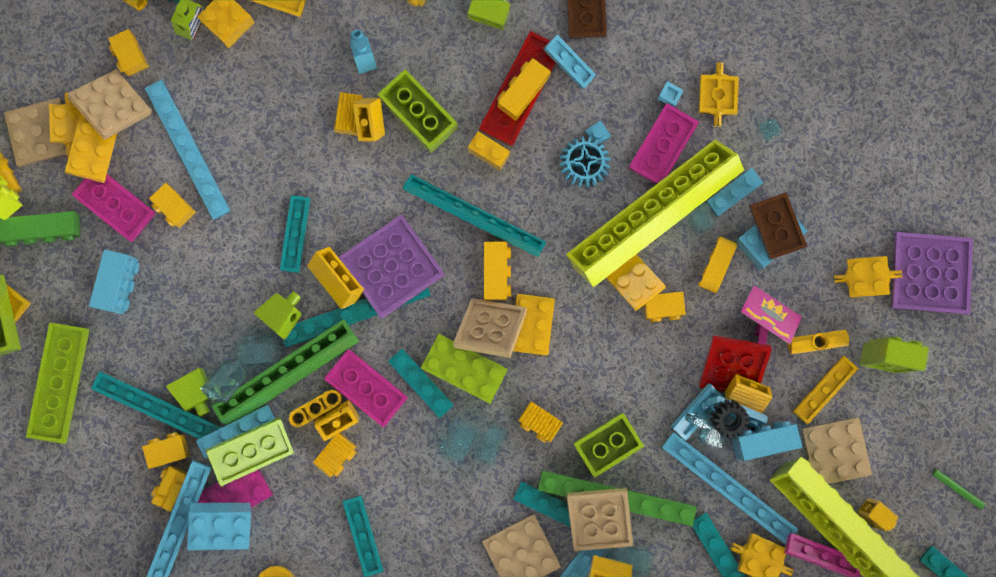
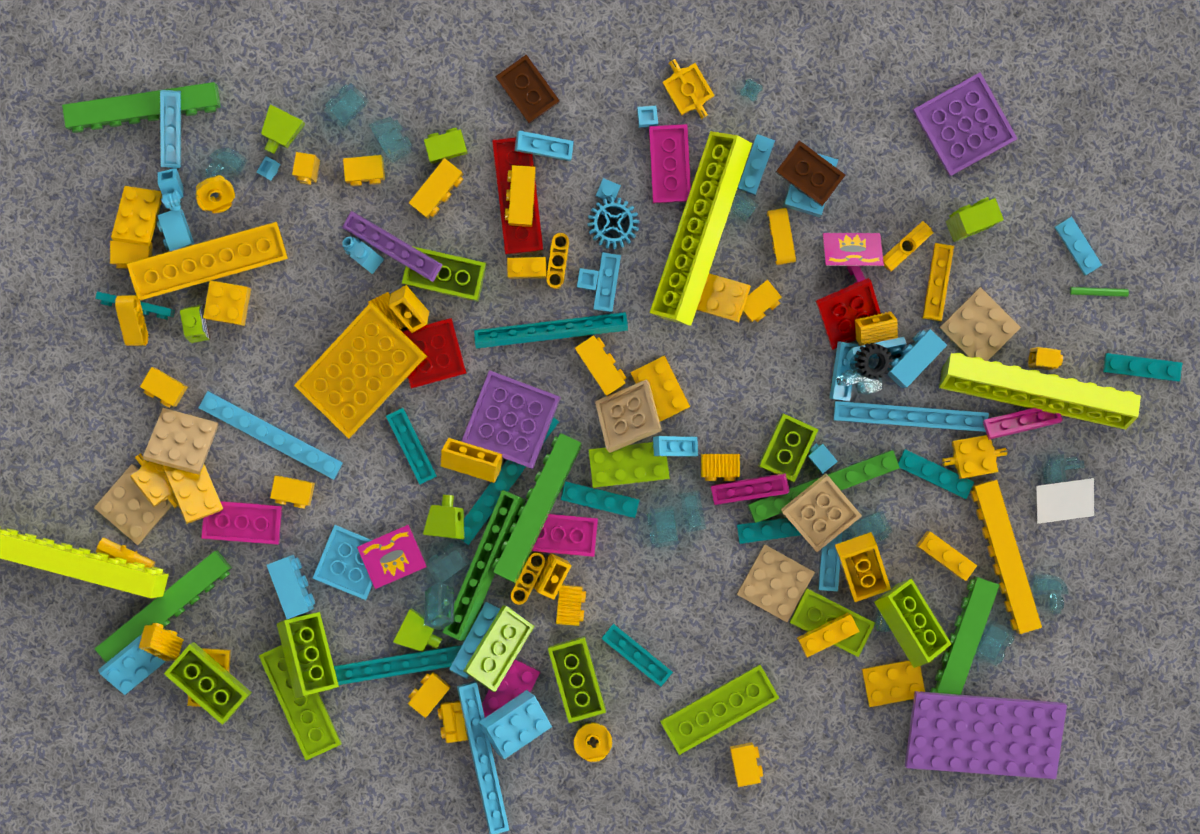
camera: 30 degrees left, 5 degrees up
(87, 348) = (307, 655): none -> lime brick
(178, 296) = (342, 563): none -> medium azure plate
(215, 314) = (391, 556): none -> dark pink sticker
(295, 143) = (360, 370): none -> yellow plate
(297, 522) = (576, 679): none -> lime brick
(362, 354) = (537, 508): none -> bright green brick
(363, 169) = (442, 350): none -> red plate
(390, 60) = (392, 246): none -> medium lavender tile
(458, 40) = (437, 189): none -> yellow brick
(513, 379) = (675, 446): none -> medium azure plate
(521, 154) = (554, 252): none -> yellow beam
(532, 194) = (587, 279): none -> medium azure plate
(547, 207) = (607, 282): none -> medium azure plate
(552, 458) = (750, 489): none -> dark pink plate
(630, 472) = (821, 457): none -> medium azure brick
(868, 276) = (913, 163): yellow plate -> none
(964, 438) = (1078, 246): none -> medium azure plate

